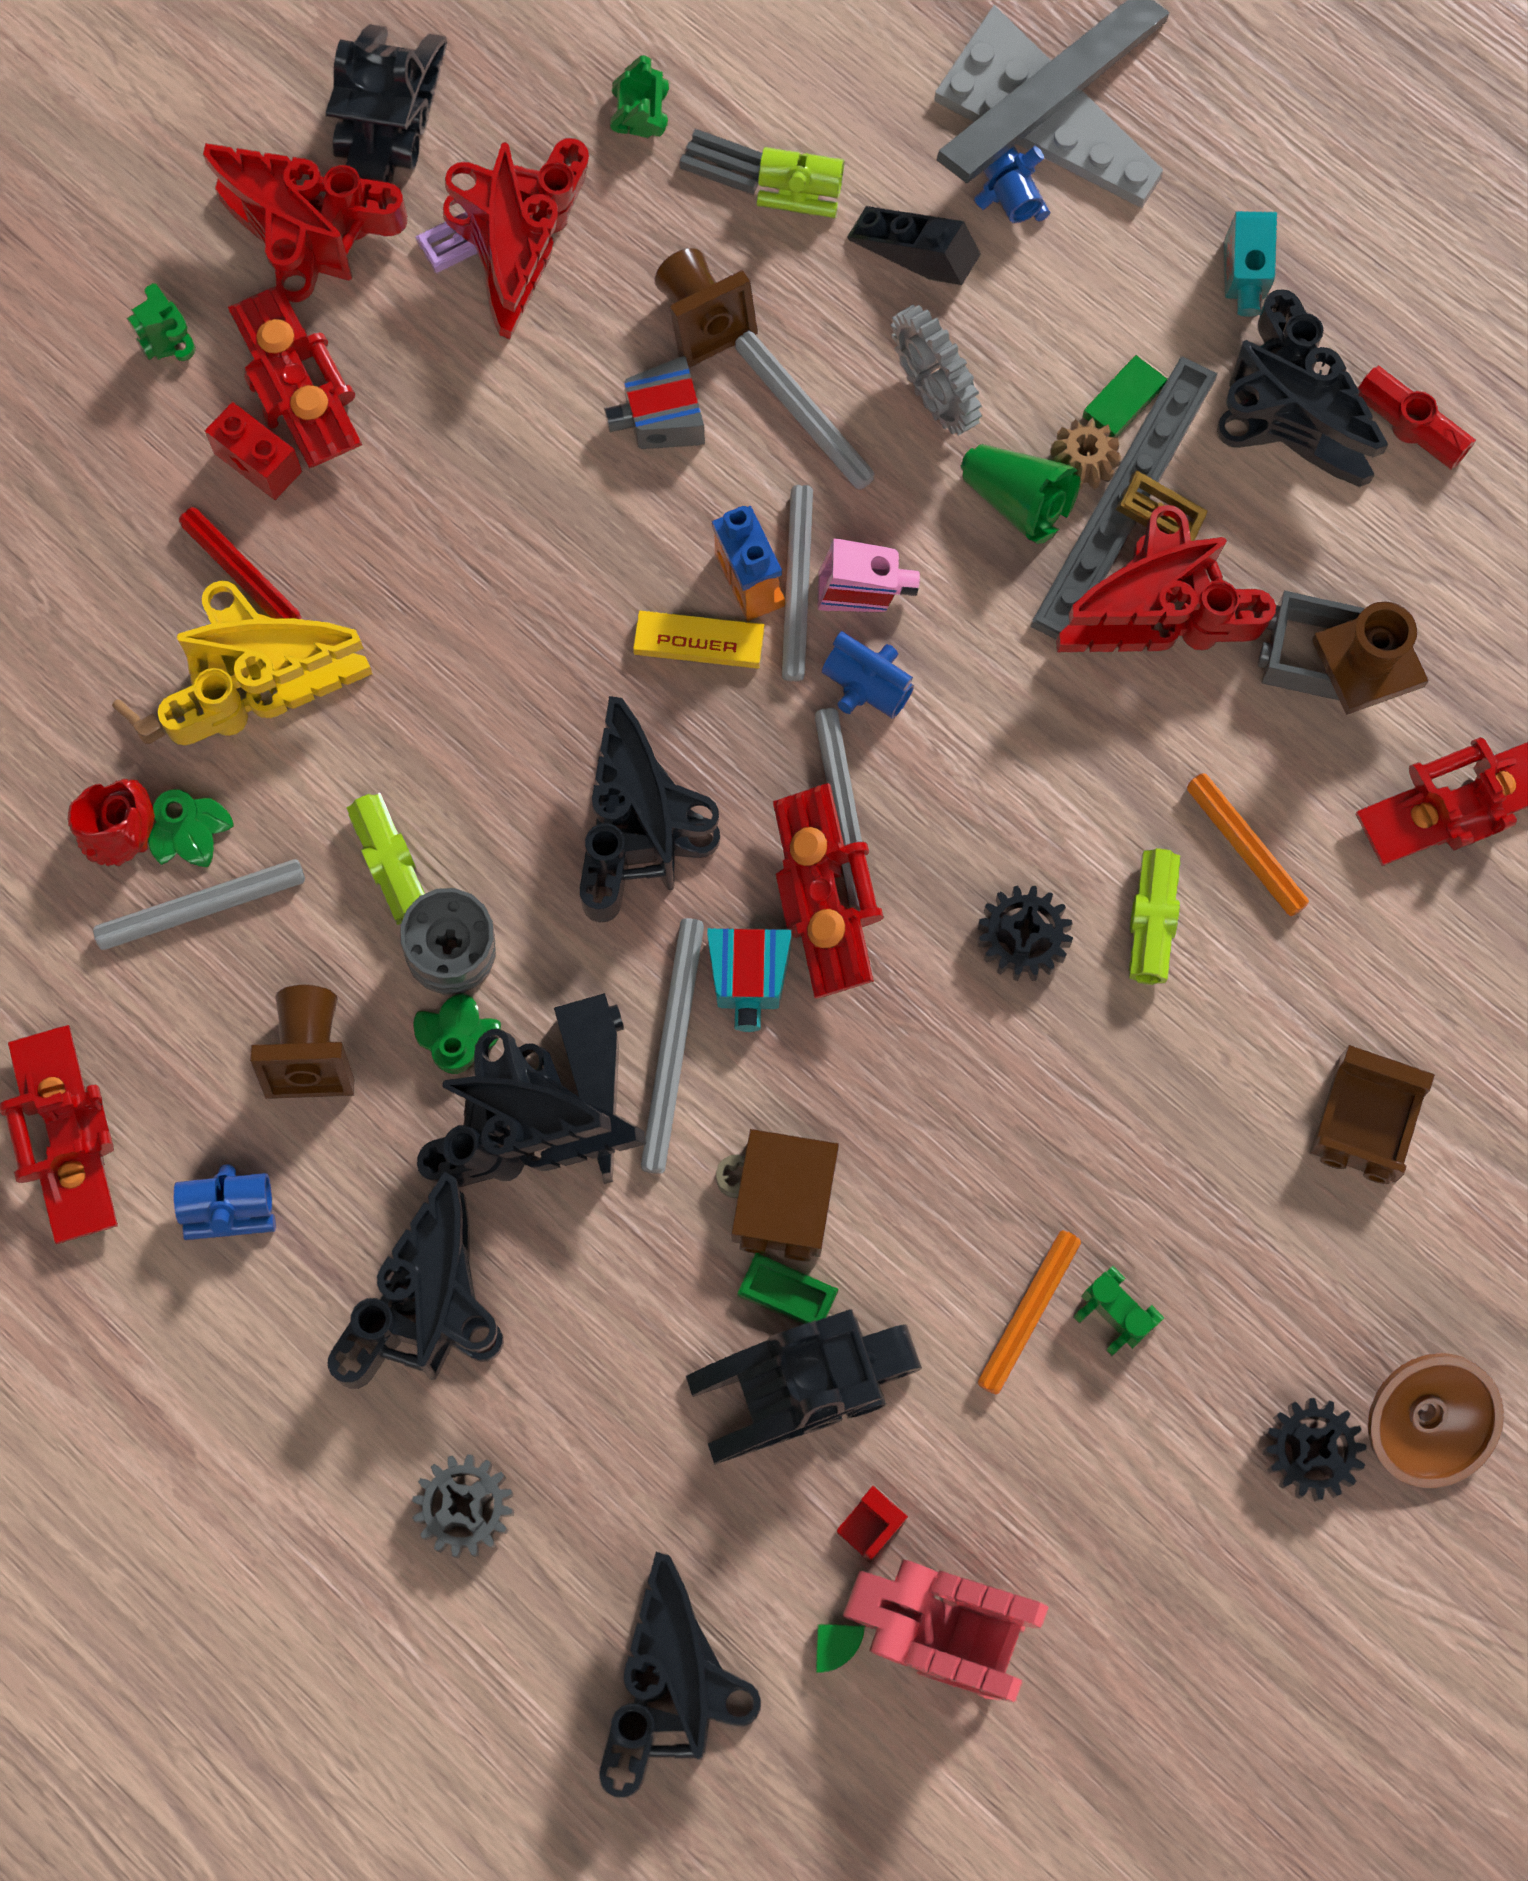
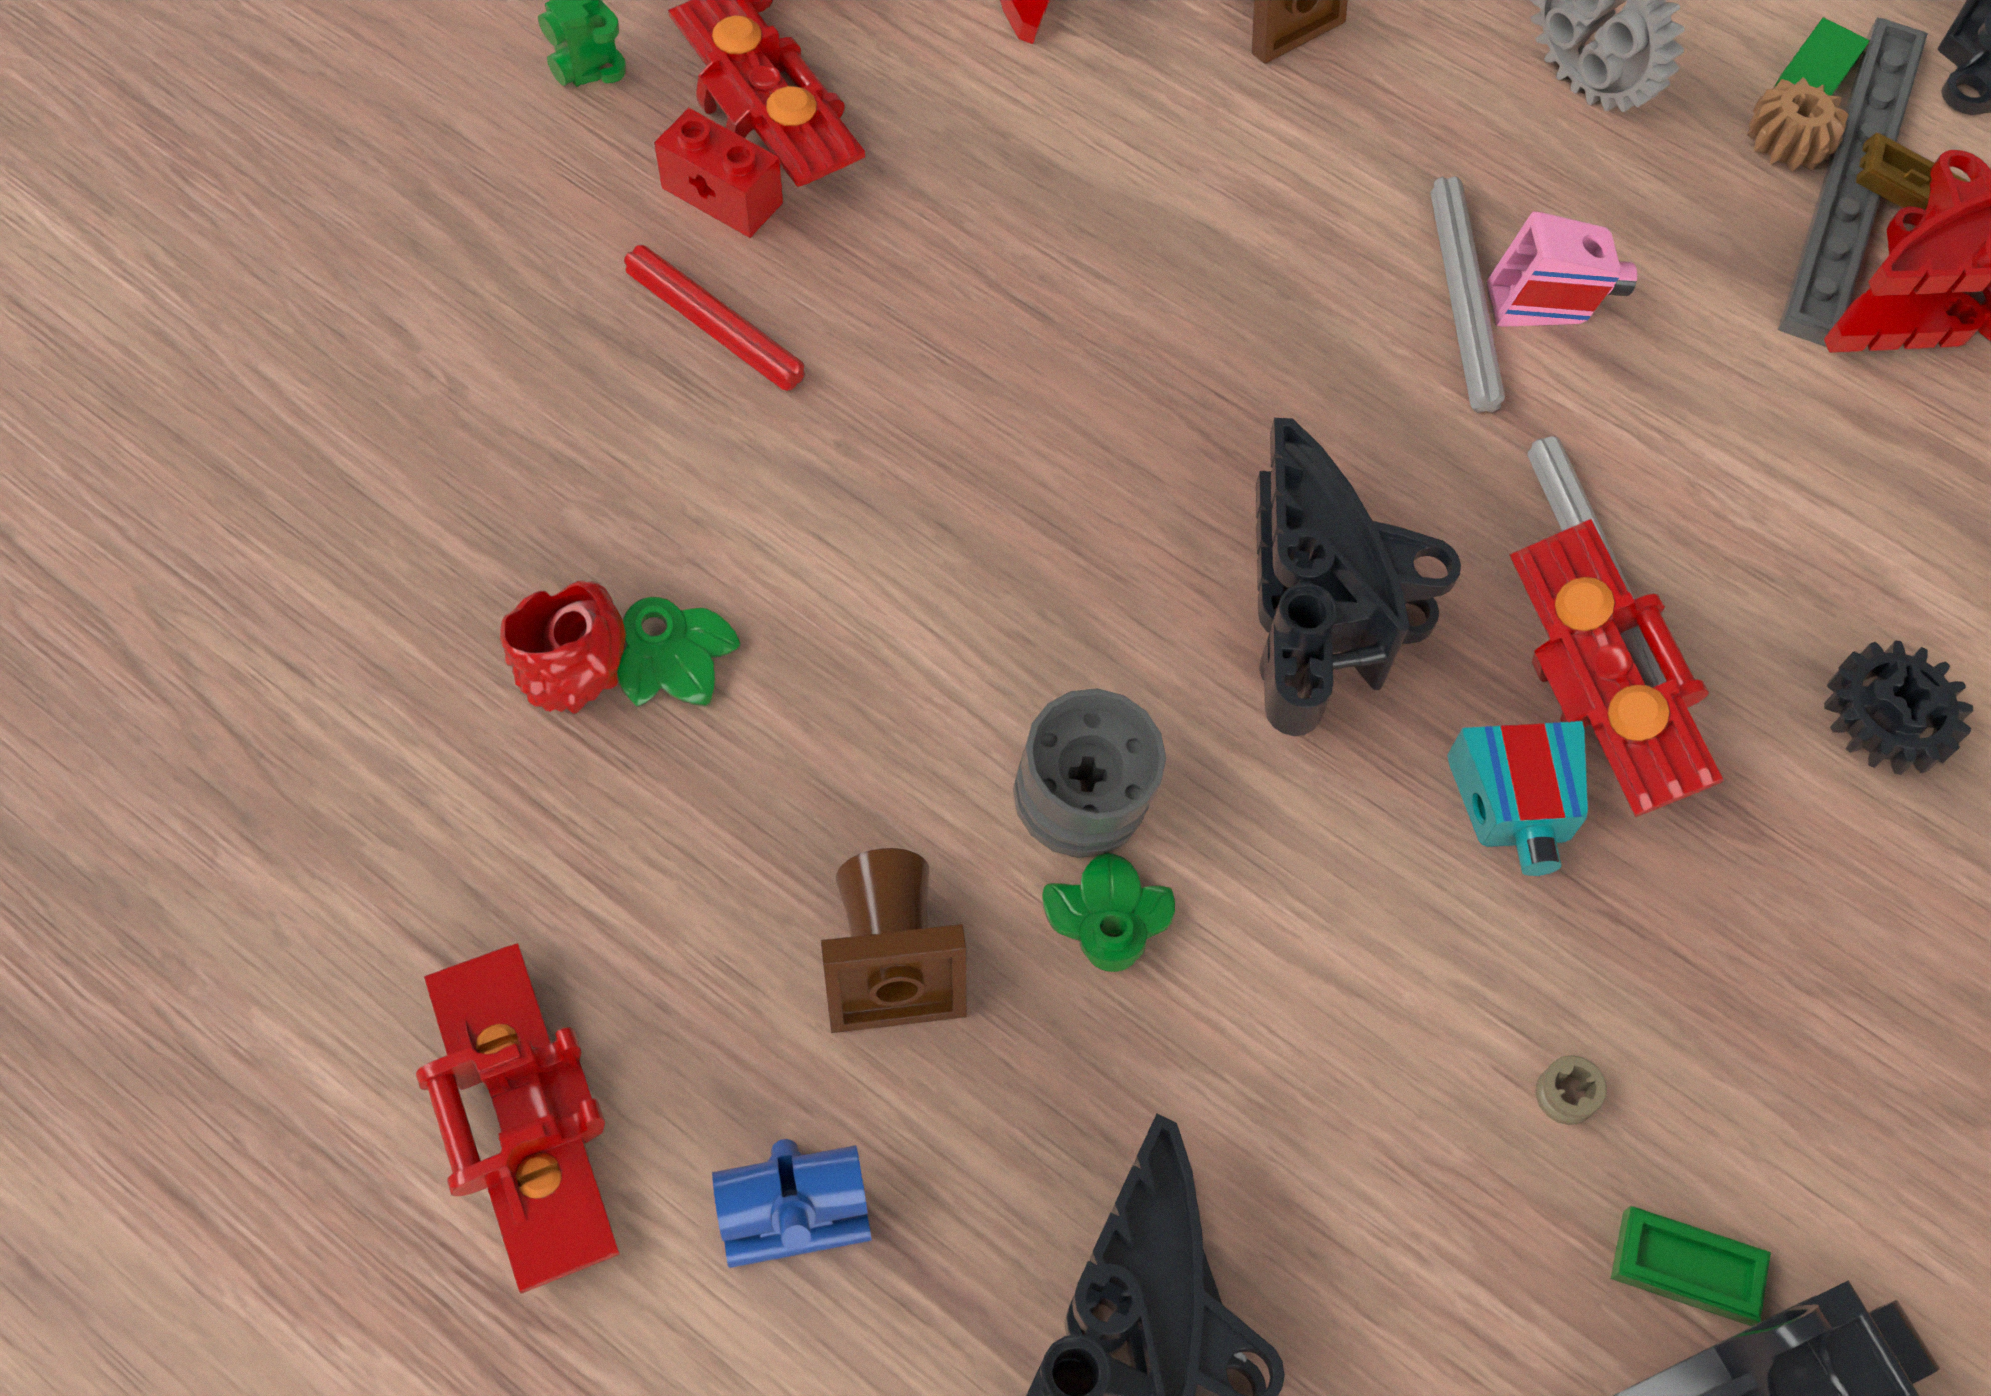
camera: 10 degrees left, 10 degrees down
(147, 728) = (601, 525): medium nougat hand -> none
(198, 904) = (698, 756): light grey axle -> none
(259, 655) = (761, 406): yellow piece -> none
(385, 853) = (972, 669): lime piece -> none
(516, 1113) = (1235, 982): black piece -> none
(592, 1049) = (1322, 922): black slope -> none
(660, 408) = (1248, 100): torso -> none
(672, 1046) = (1433, 912): light grey axle -> none
(699, 639) = (1351, 367): yellow tile -> none
(748, 562) = (1414, 256): blue hips -> none
(784, 1195) = (1662, 1111): reddish brown panel -> none
(804, 410) = (1429, 99): light grey axle -> none
(867, 676) = (1596, 390): blue pin -> none
(1022, 488) = (1733, 159): green cone -> none

